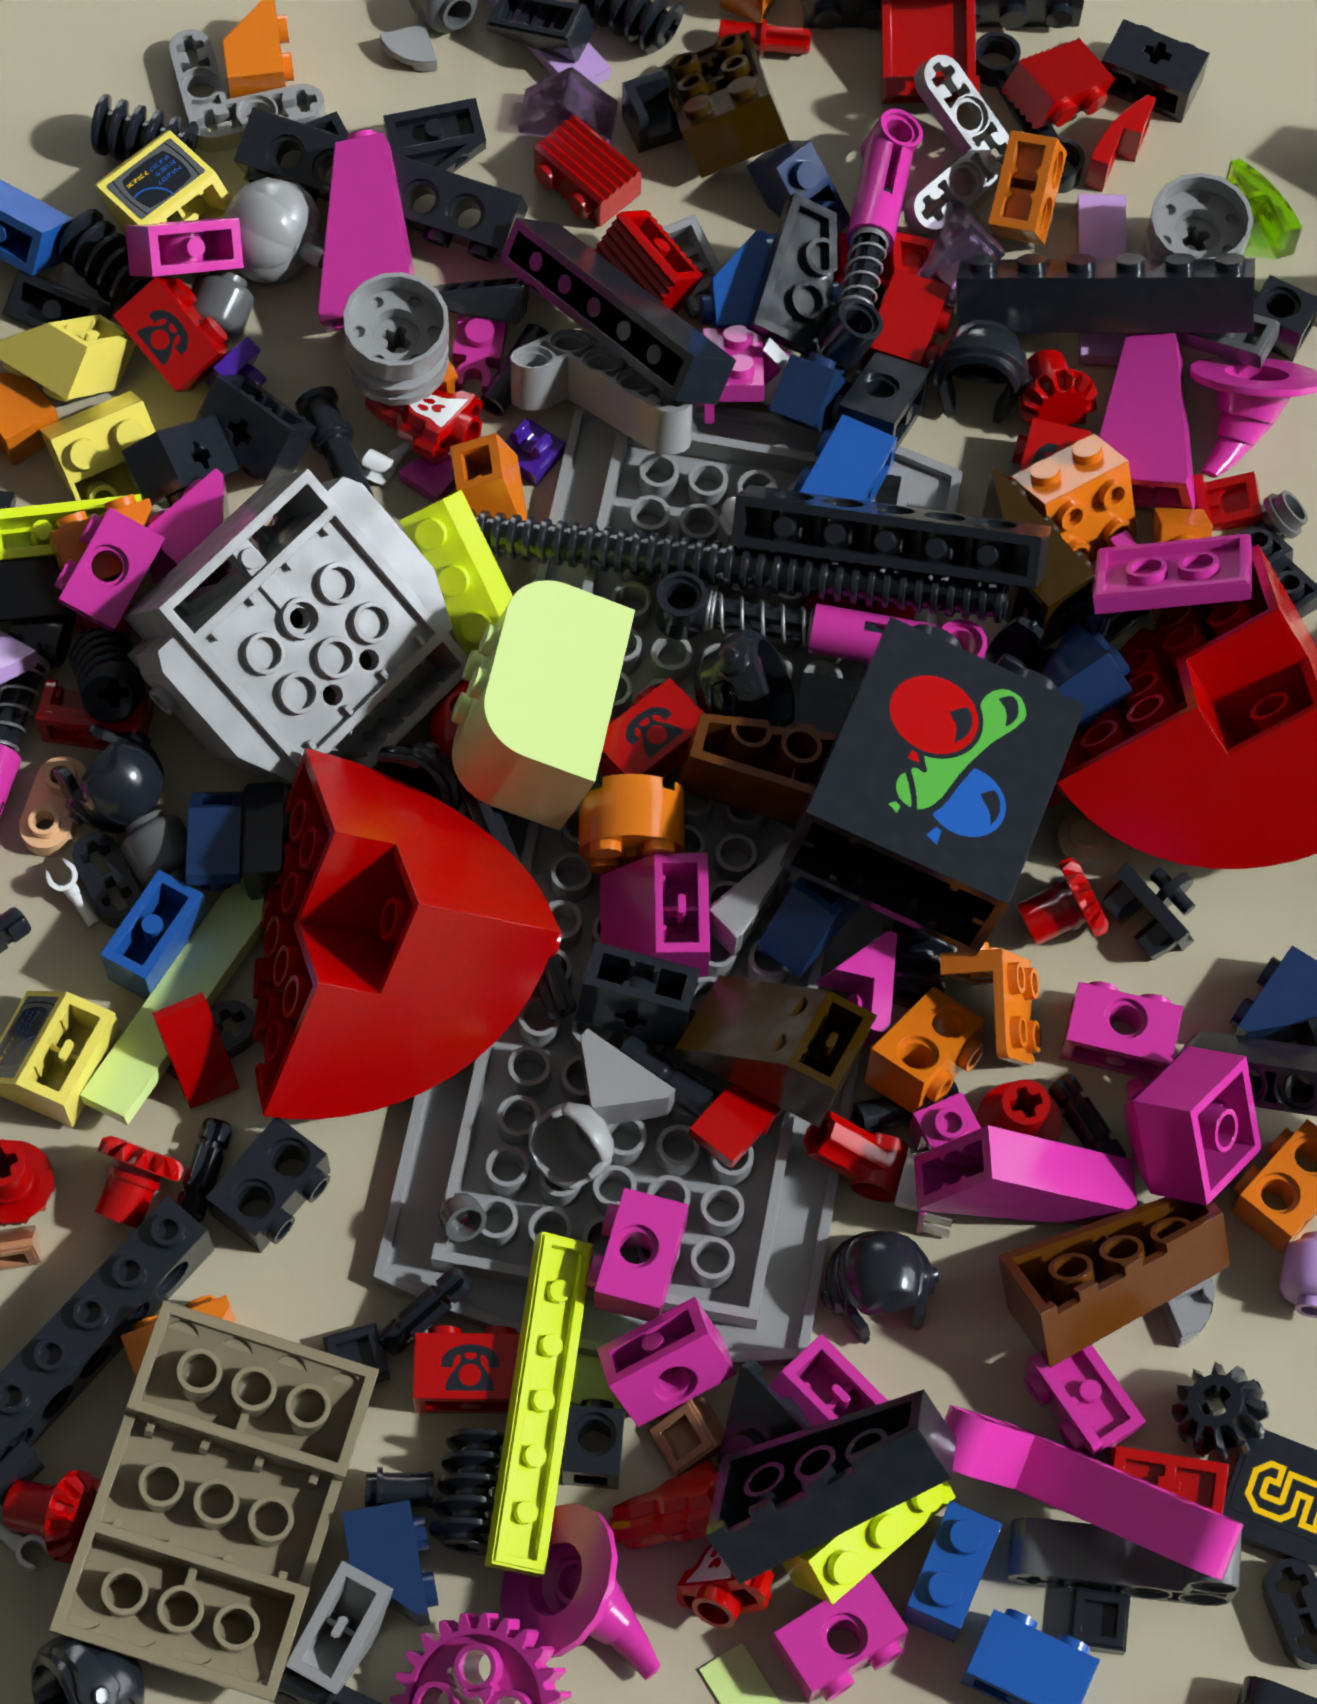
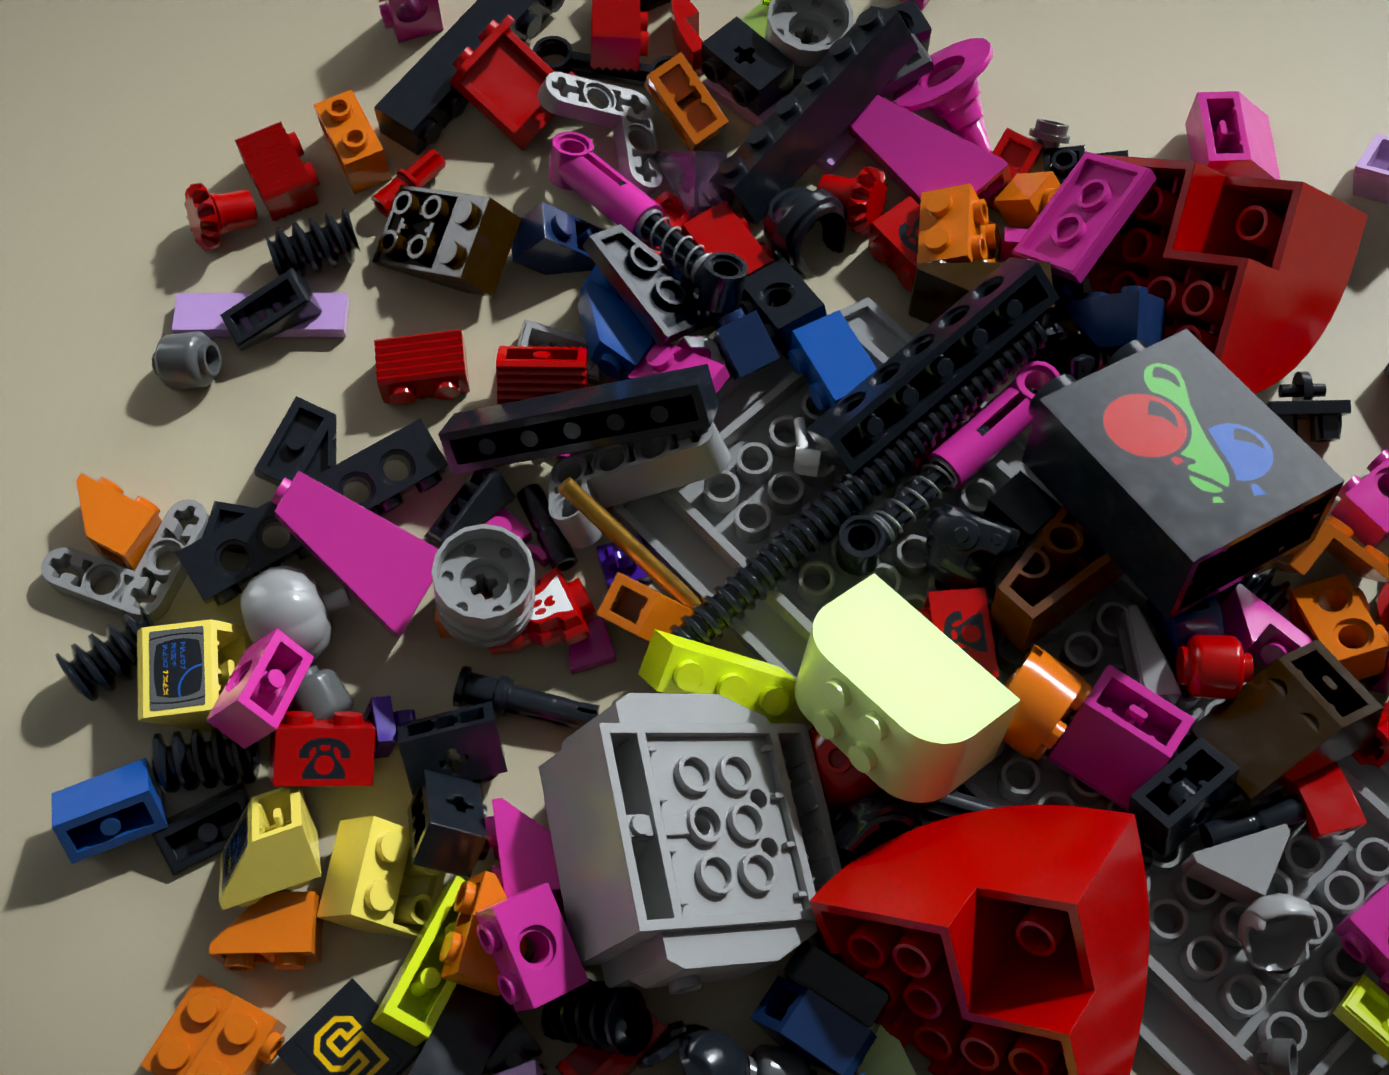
camera: 50 degrees left, 0 degrees up
(381, 467) = (551, 679): white hand -> none
(410, 47) = (204, 412): light grey tile -> none
(534, 424) = (627, 543): none -> pearl gold bar
(565, 95) = (349, 345): clear purple slope -> none
(649, 111) = (408, 295): black panel -> none
(778, 943) = (1213, 666): none -> red head
(1117, 207) = (747, 66): none -> black brick

